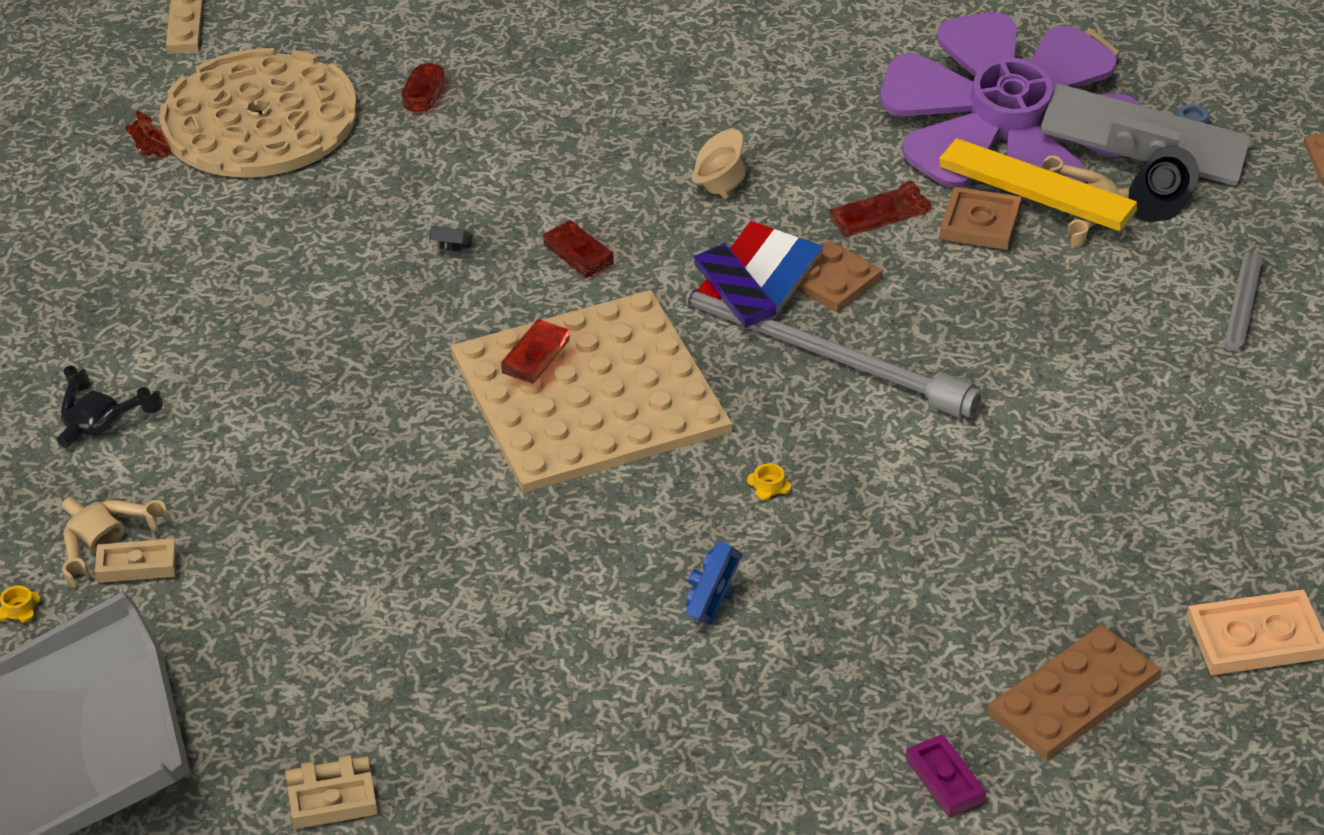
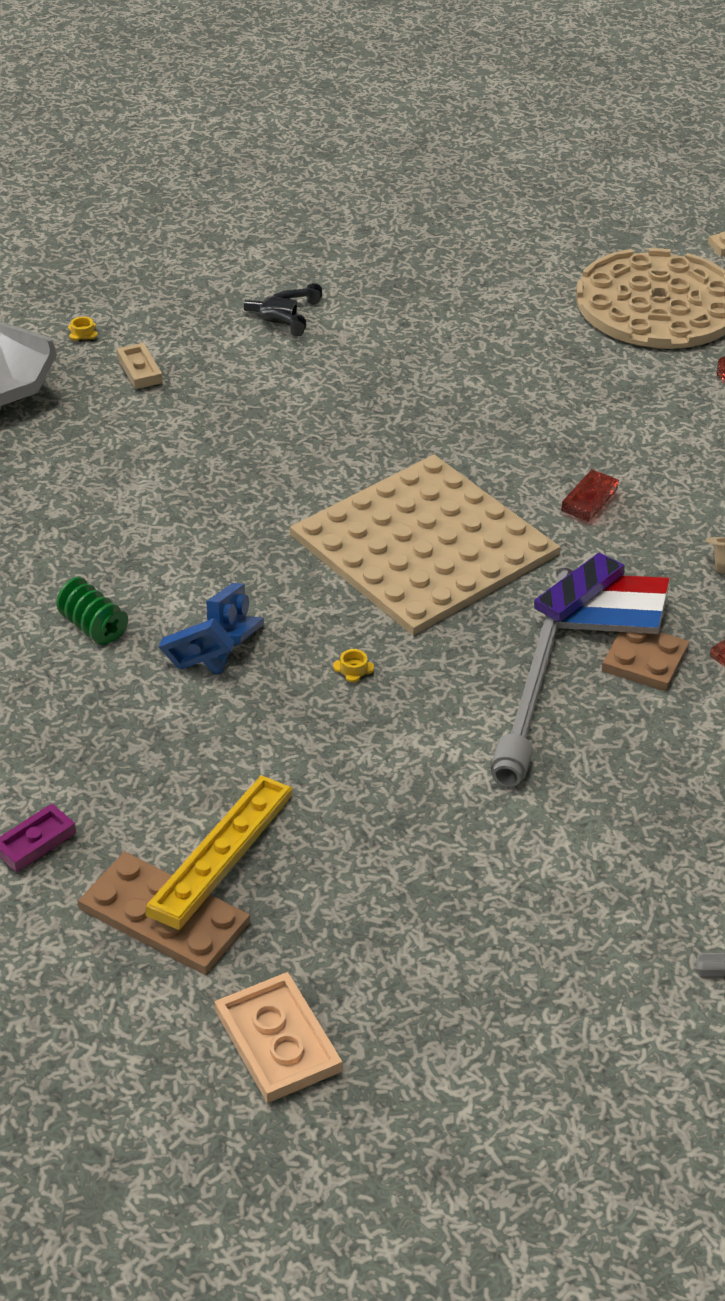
camera: 70 degrees right, 0 degrees up
(97, 526) = (161, 342): tan piece -> none
(147, 138) = (592, 251): clear red plate -> none
(450, 238) = (562, 424): black plate -> none
(535, 351) = (430, 489): clear red plate -> none
(603, 670) = (91, 611): none -> green piece
(670, 548) = (230, 611): none -> blue bracket
(1017, 627) = (218, 853): none -> yellow tile

